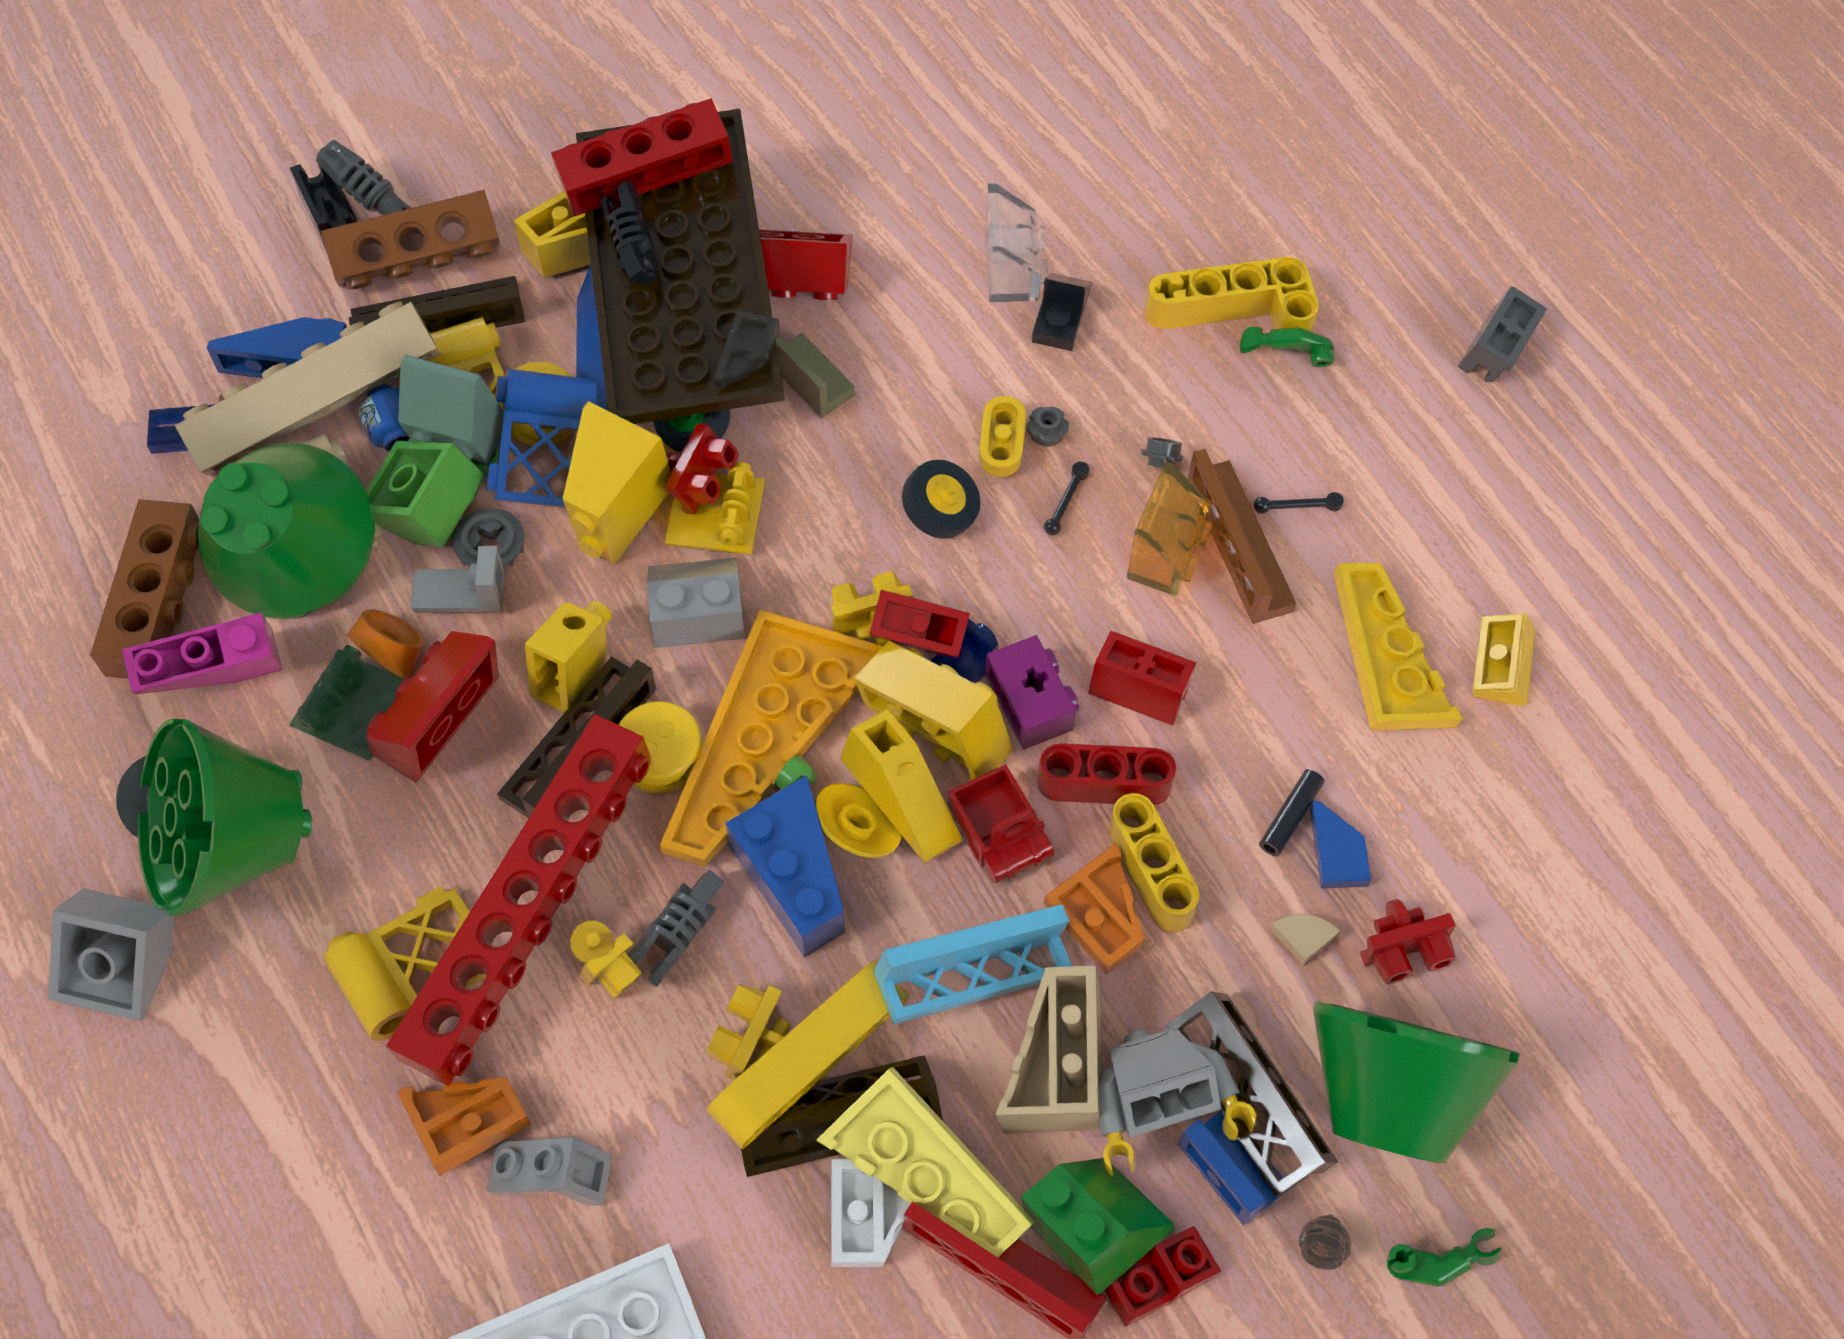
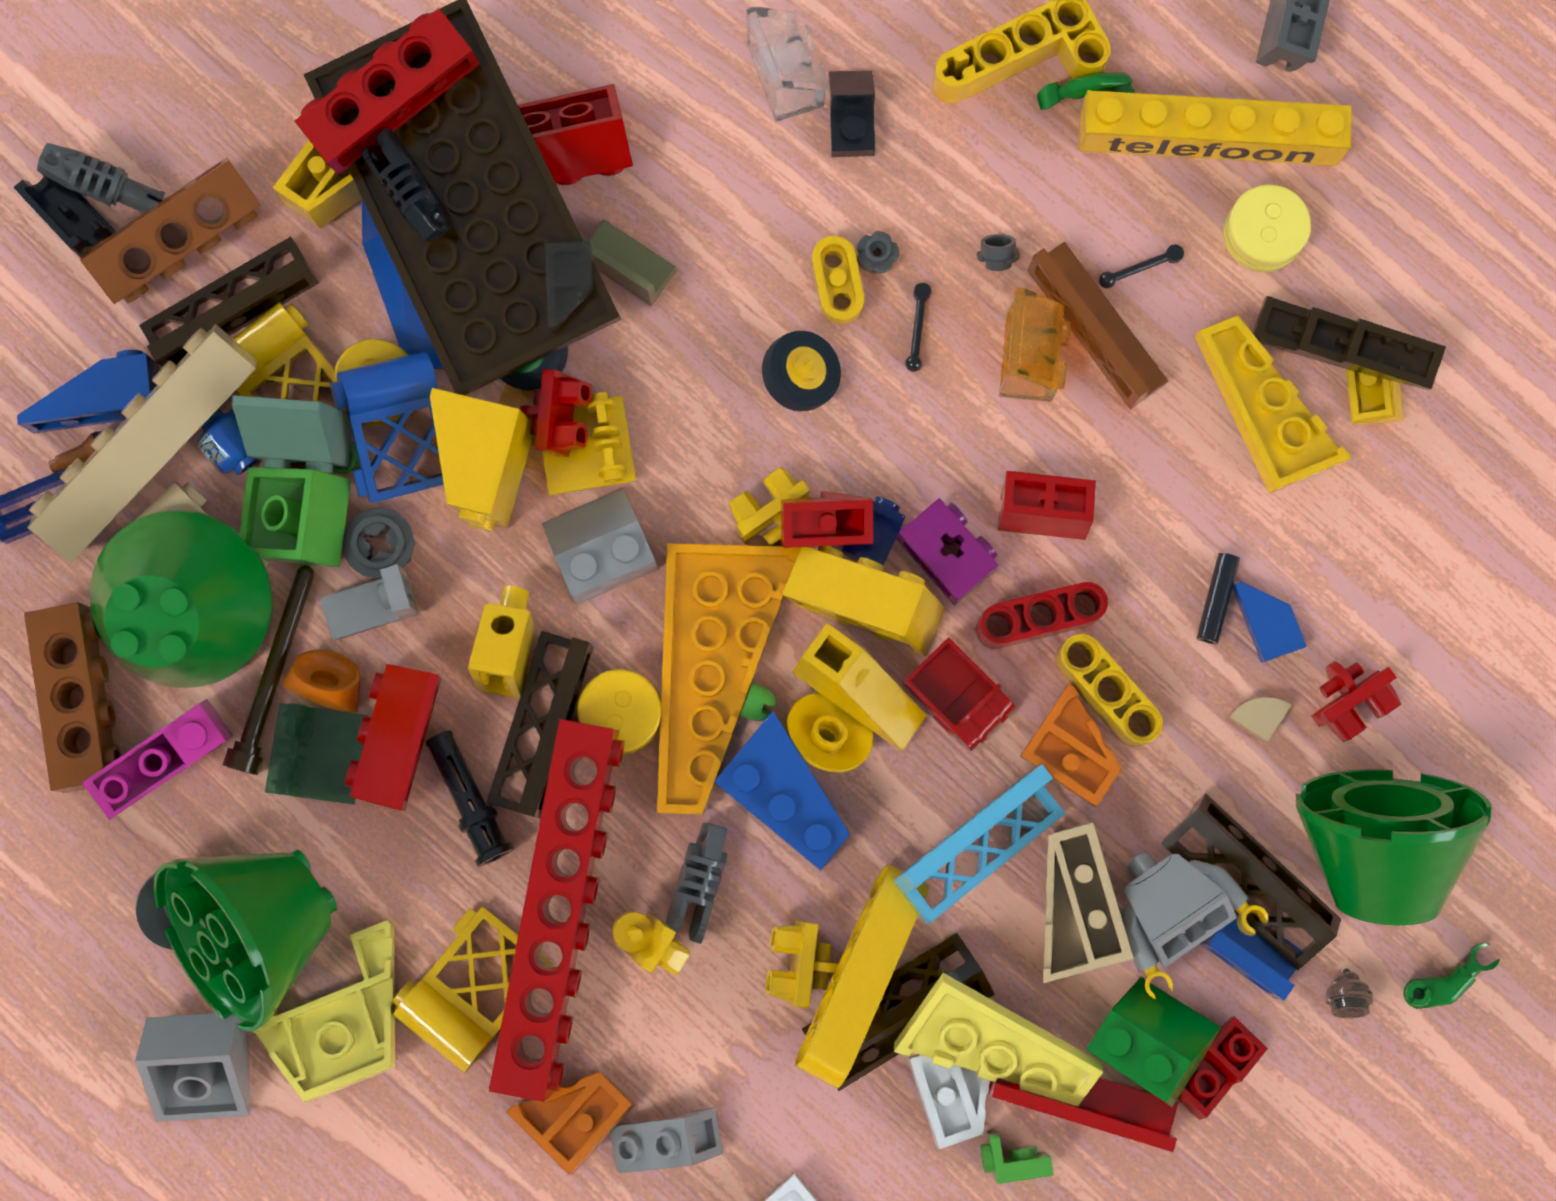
camera: 15 degrees left, 20 degrees up
(264, 964) = (345, 1032): none -> light yellow wing
(285, 685) = (246, 751): none -> dark brown piece
(482, 800) = (472, 822): none -> black pin
(915, 1310) = (1022, 1164): none -> bright green bracket
(1401, 401) = (1214, 128): none -> yellow brick
(1430, 499) = (1267, 228): none -> light yellow head
(1484, 613) = (1349, 343): none -> dark brown slope

